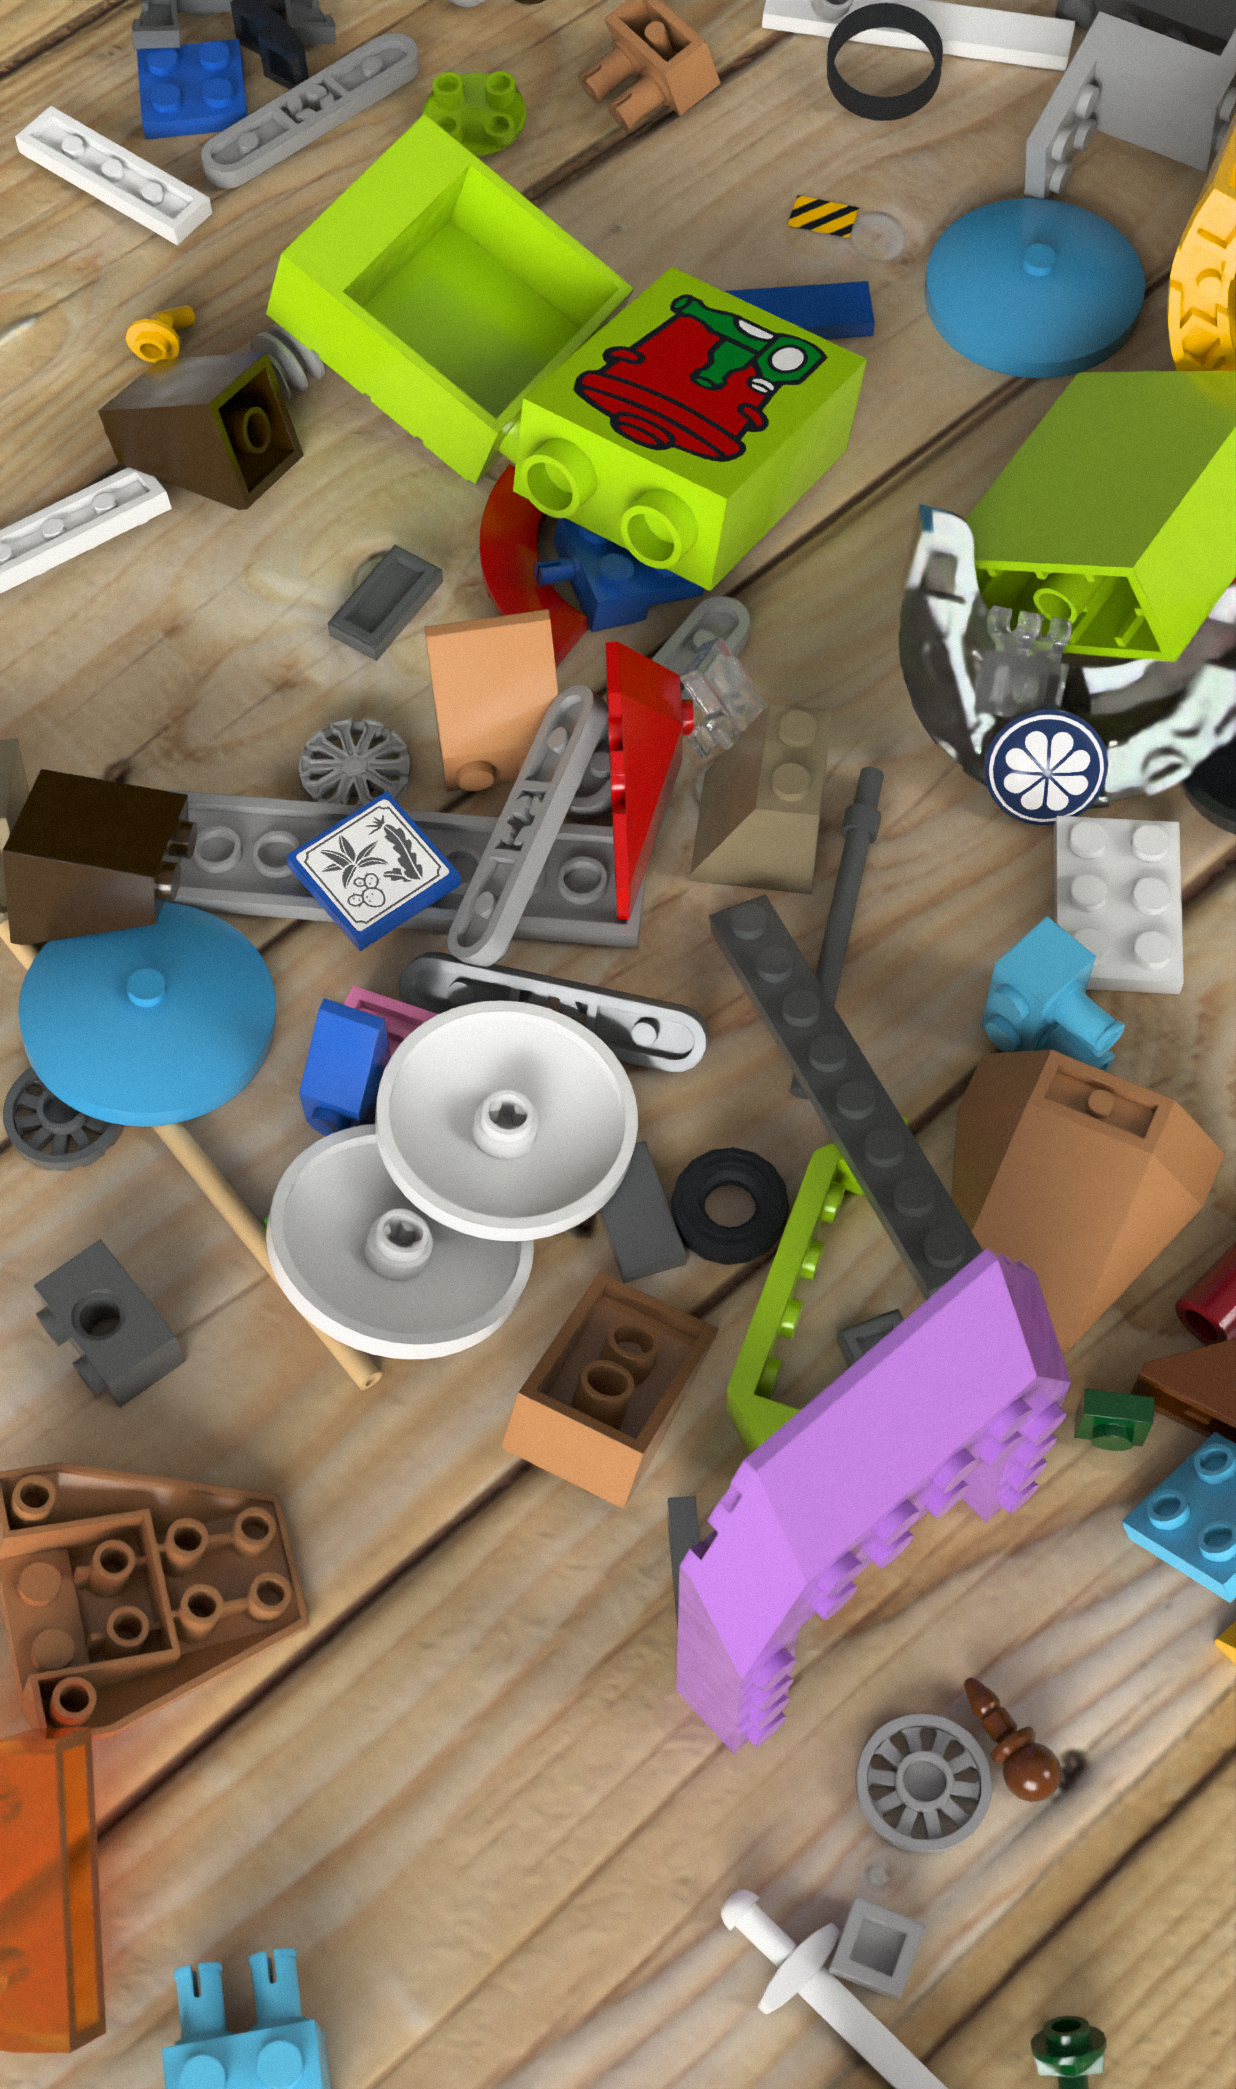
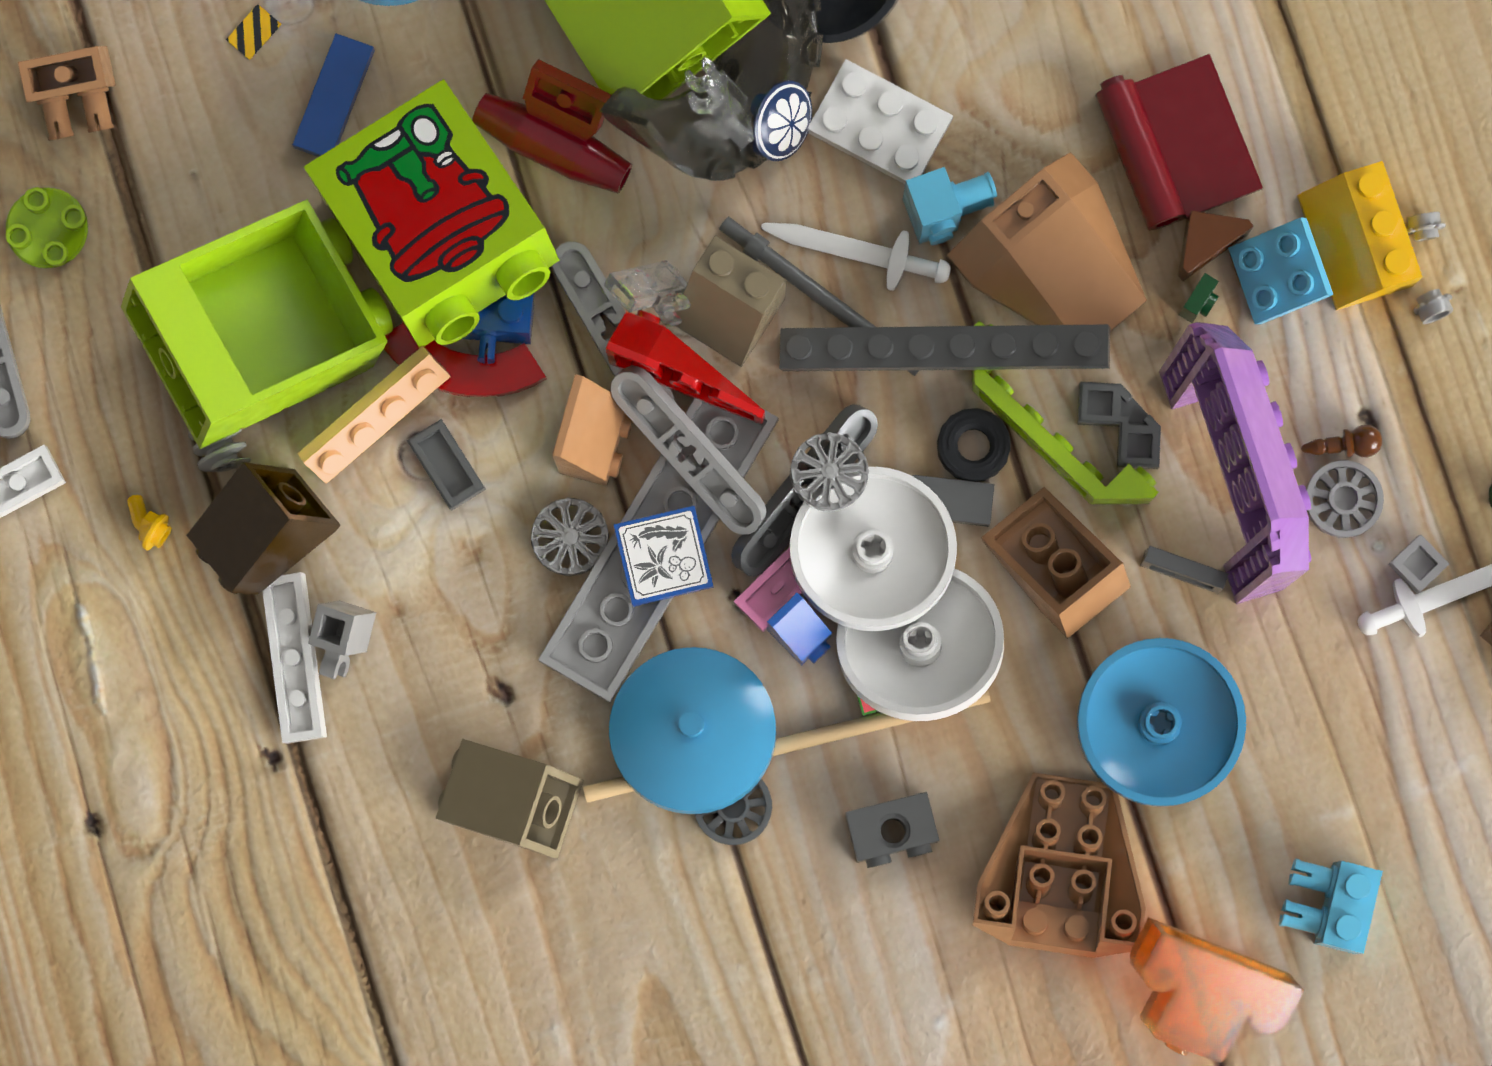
camera: 65 degrees left, 20 degrees up
(93, 857) = (590, 719): dark brown slope -> none
(106, 559) = (342, 632): none -> light grey brick
(408, 488) = (373, 414): none -> light nougat plate
(428, 1638) = (1161, 722): none -> dark azure dish
(587, 1012) = (829, 472): none -> light grey wheel
(874, 527) = (556, 127): none -> dark red plate
(939, 997) = (895, 260): none -> white sword

